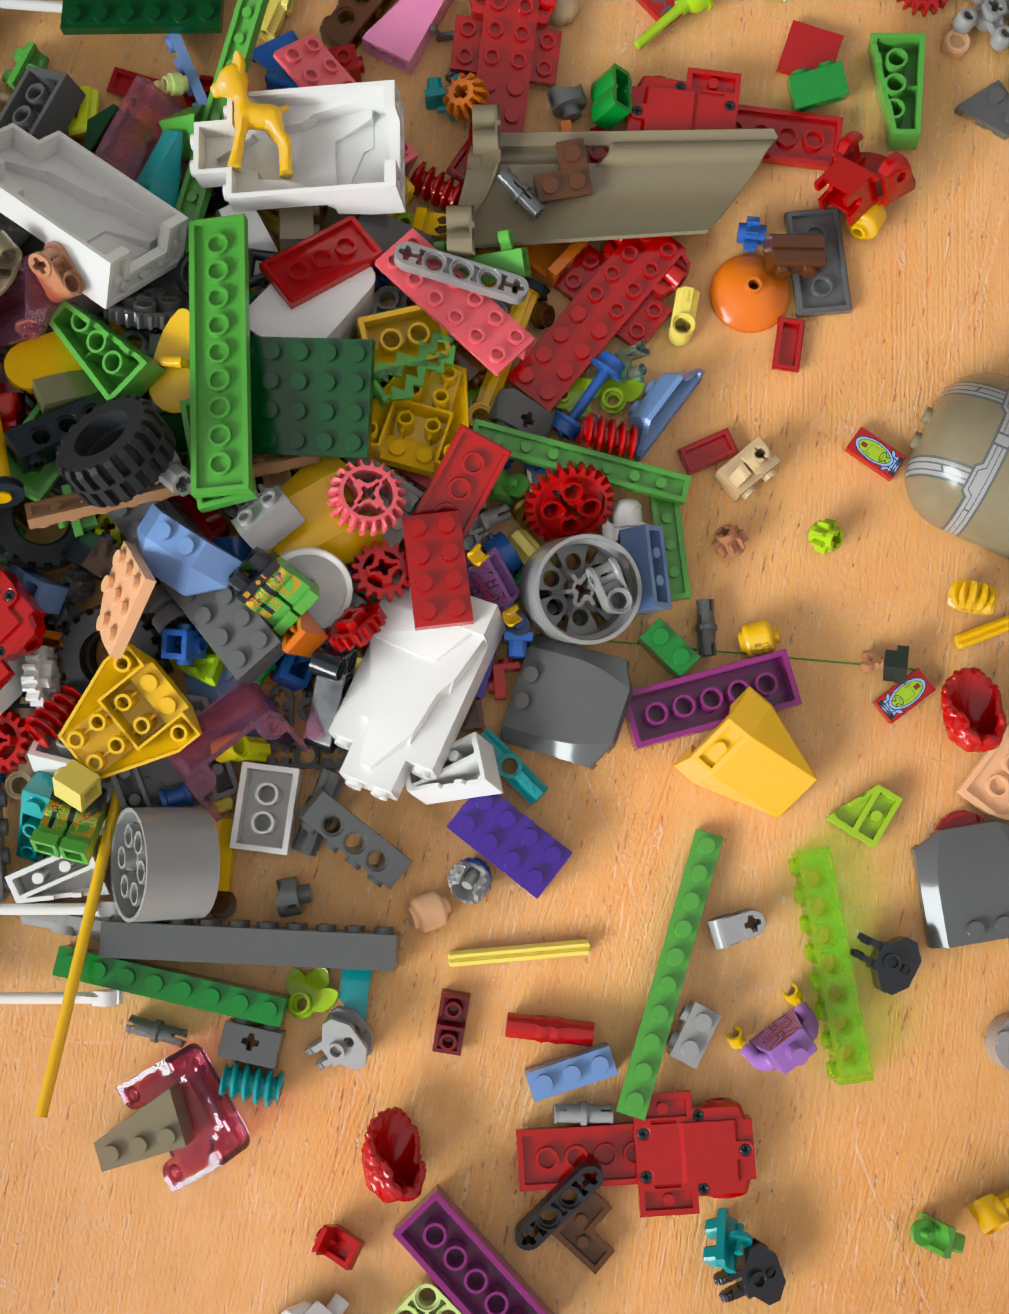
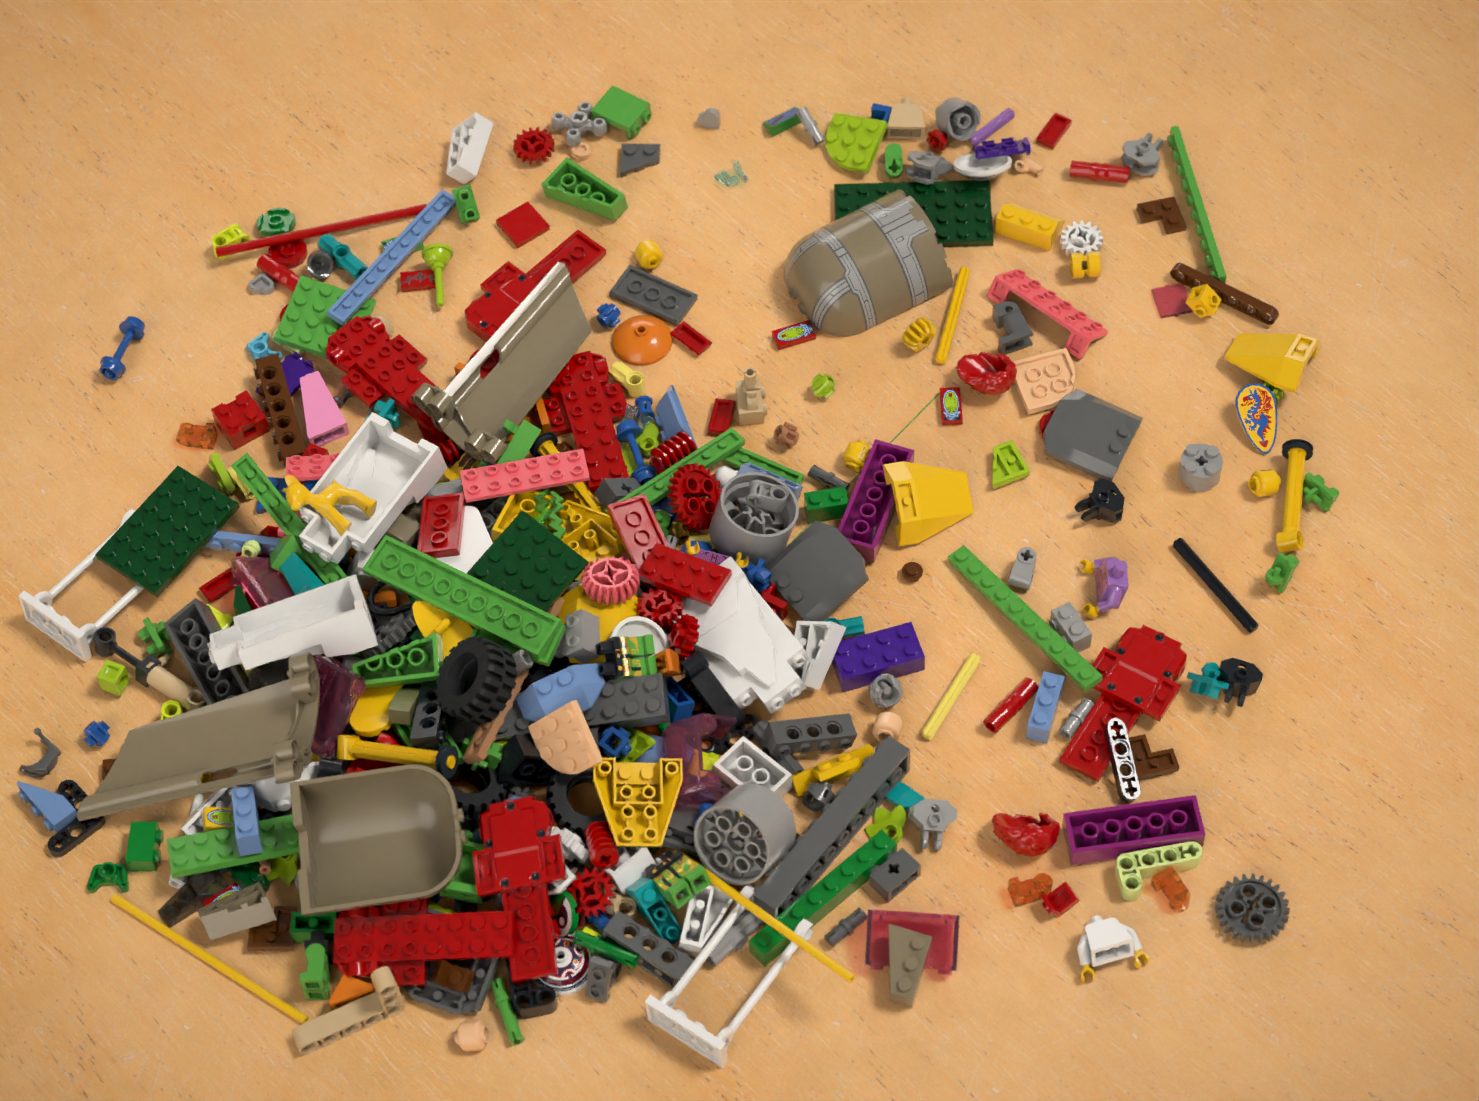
camera: 50 degrees left, 25 degrees down
(58, 274) = (340, 651): nougat piece -> none
(77, 785) = (656, 853): light yellow brick -> none
(251, 1083) = (920, 886): teal piece -> none
(330, 1205) = (1029, 890): none -> clear orange leg
(335, 891) = (833, 769): none -> yellow bracket
(451, 262) = (483, 476): light grey beam -> none
(451, 1022) = (965, 759): dark red slope -> none
(464, 93) = (395, 397): orange gear -> none
(521, 193) = (485, 407): dark grey pin -> none
(567, 101) = (445, 357): dark grey piece -> none
(571, 179) = (497, 378): reddish brown plate -> none
(611, 97) = (463, 334): green brick -> none
(650, 801) = (912, 571): none -> reddish brown plate
(665, 357) = (646, 408): none -> blue bush
(794, 254) = (641, 299): reddish brown brick -> none
(818, 86) = (549, 230): green brick -> none
(858, 1065) = (1076, 525): clear neon green brick -> none
(863, 179) = (627, 239): red piece -> none
(870, 1159) = (1215, 585): none -> black axle
(893, 664) = (928, 397): pearl dark grey piece -> none

